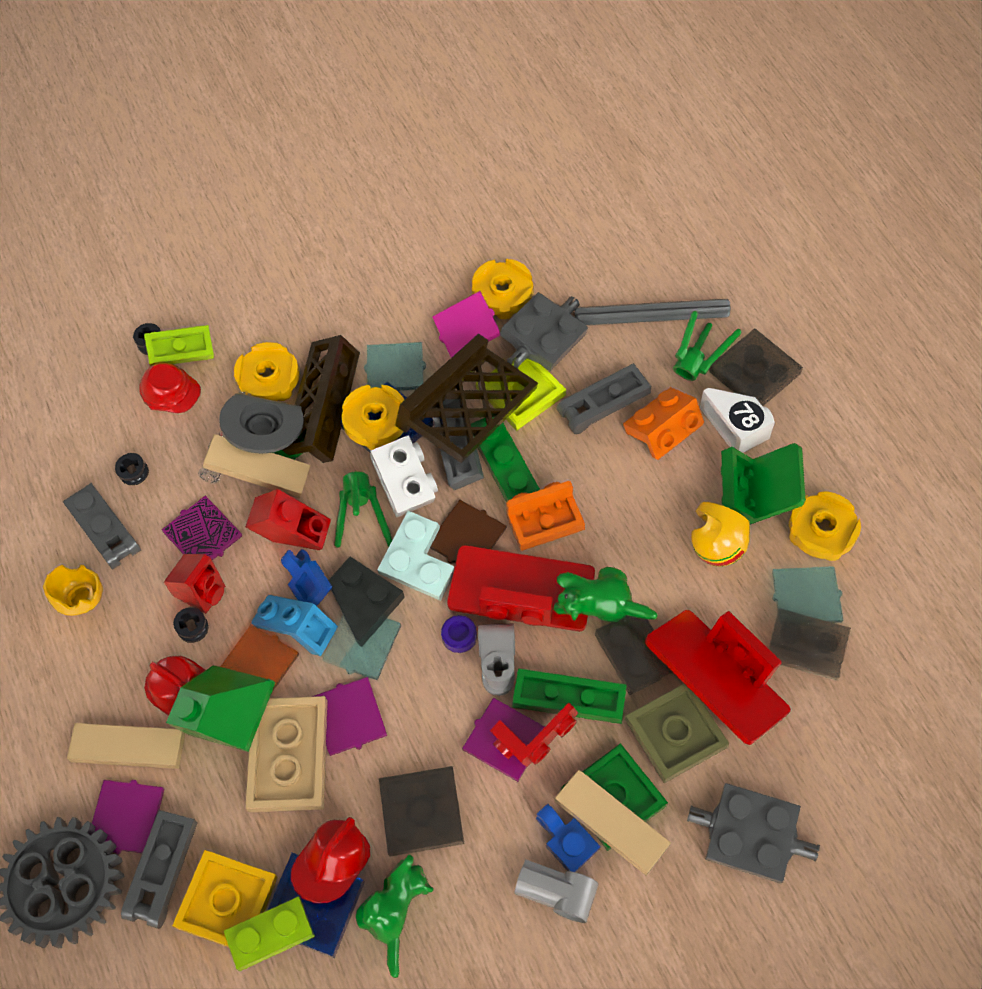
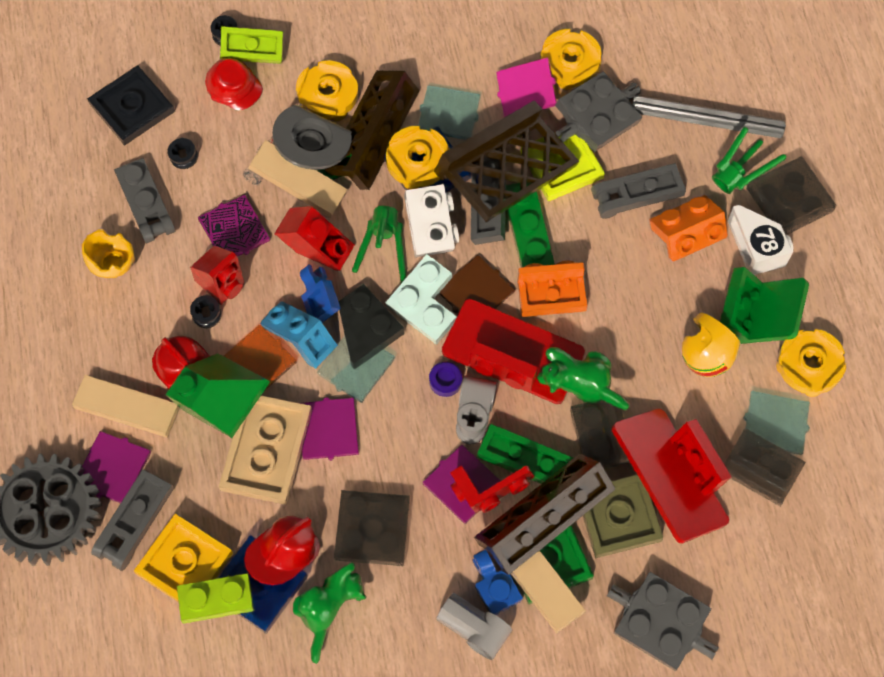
camera: 10 degrees right, 5 degrees up
(67, 433) = (131, 105): none -> black tile
(602, 748) = (546, 513): none -> dark brown fence

